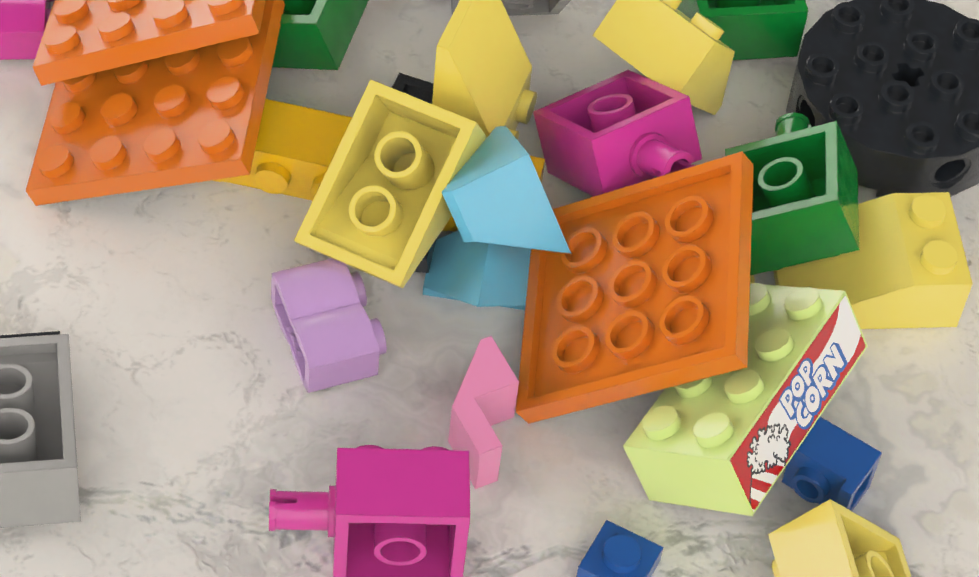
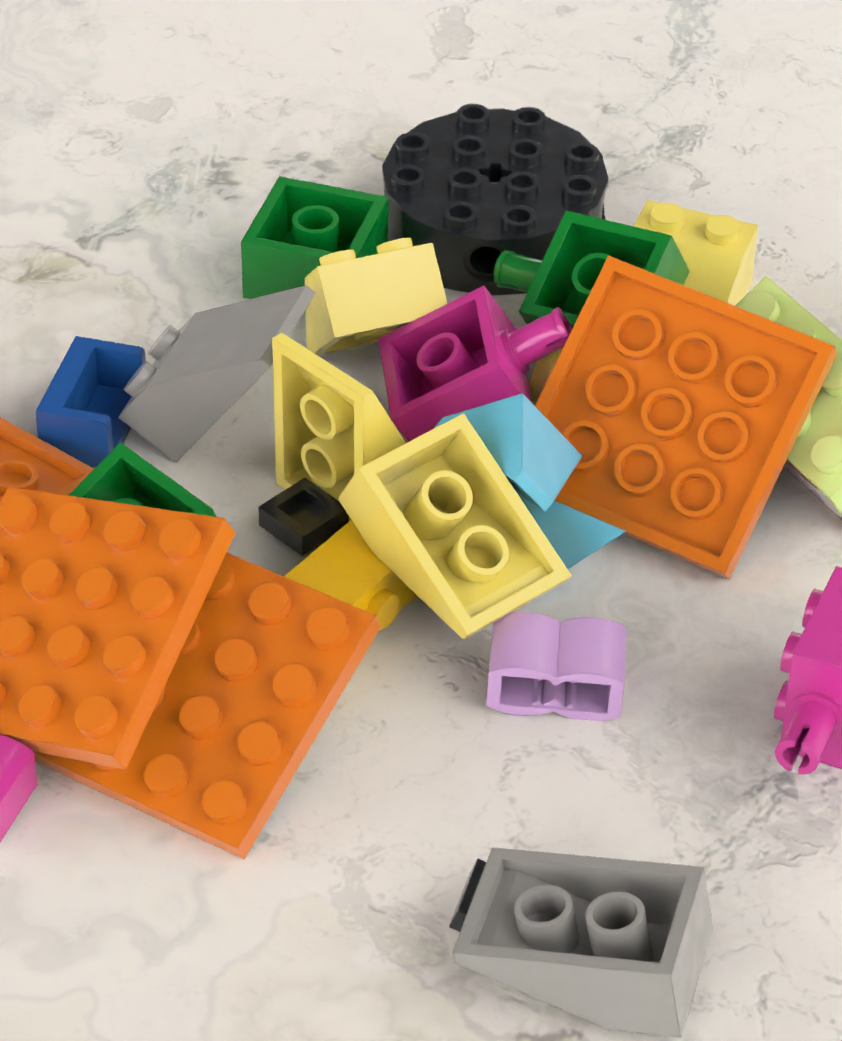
camera: 60 degrees left, 10 degrees down
(483, 400) = (732, 607): bright pink slope -> none

